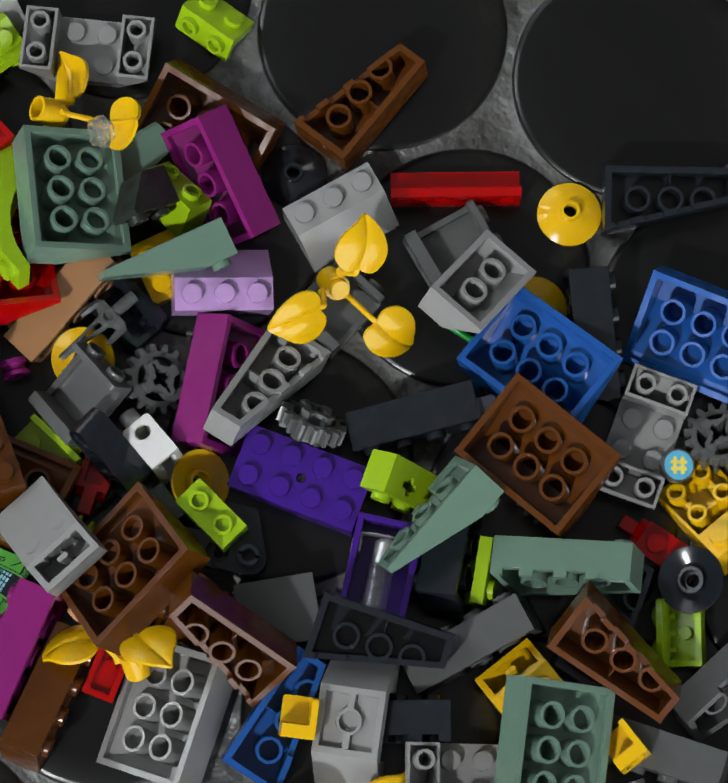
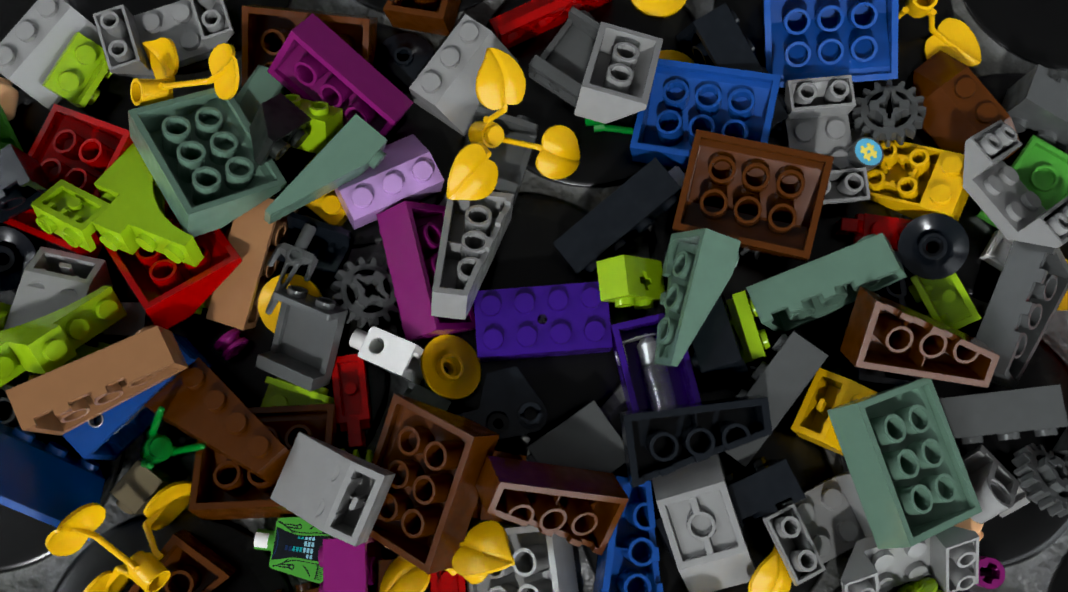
camera: 25 degrees left, 0 degrees up
(101, 131) = (207, 86): clear plate -> none
(110, 452) = (354, 378): black beam -> none
(211, 515) = (477, 392): lime brick -> none
(298, 717) = (652, 544): yellow panel -> none
(311, 423) = (527, 265): dark grey gear -> none
(626, 747) = (966, 424): yellow panel -> none

